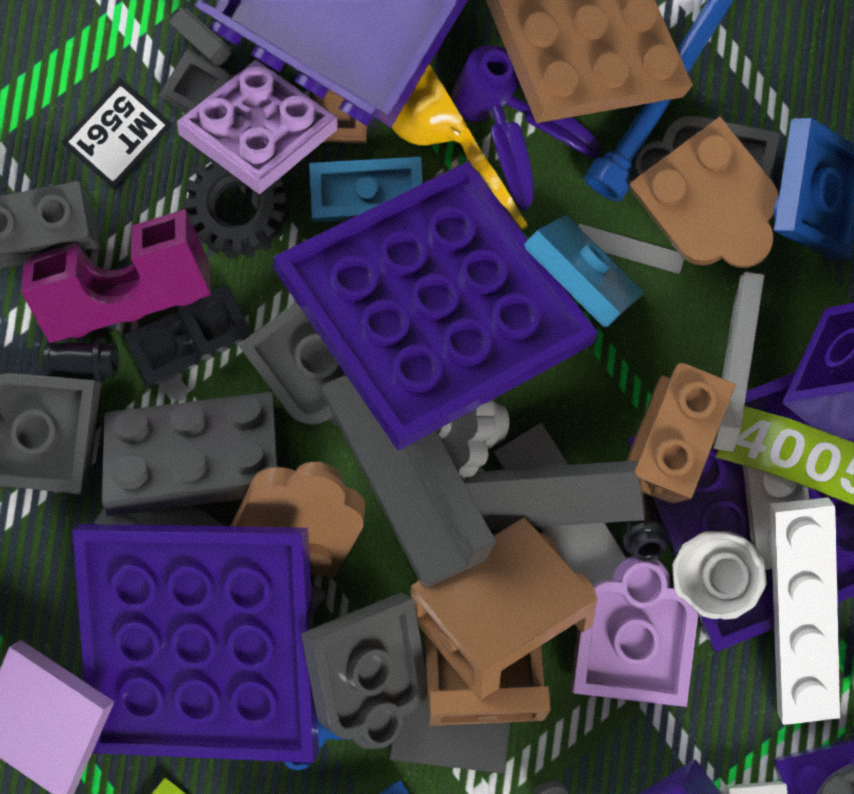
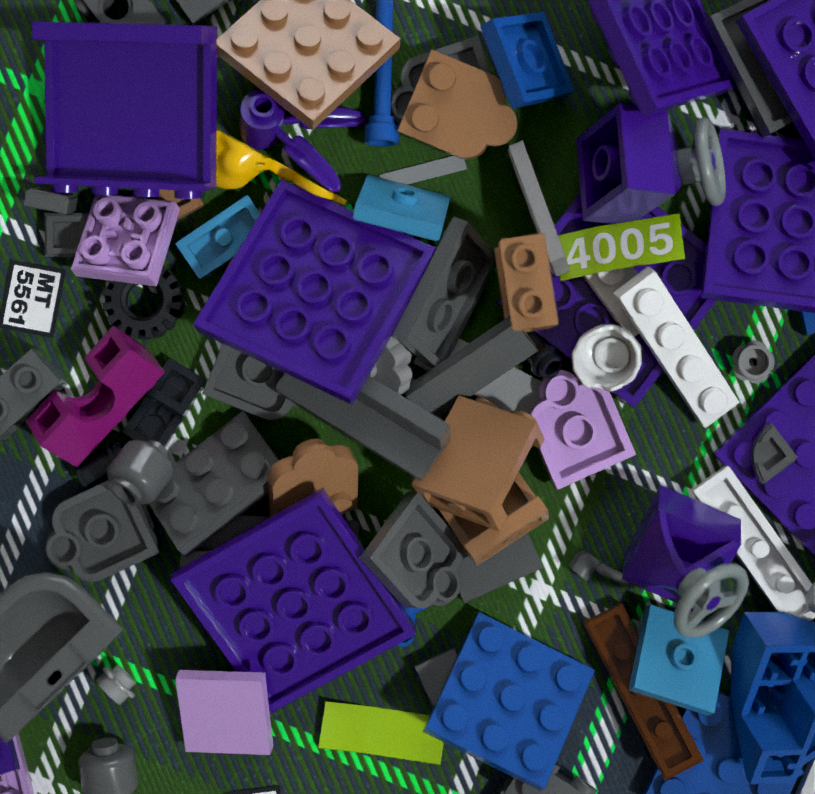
camera: 30 degrees left, 5 degrees up
(114, 389) = (139, 472): none -> dark grey head
(578, 394) = (446, 294): none -> dark grey plate

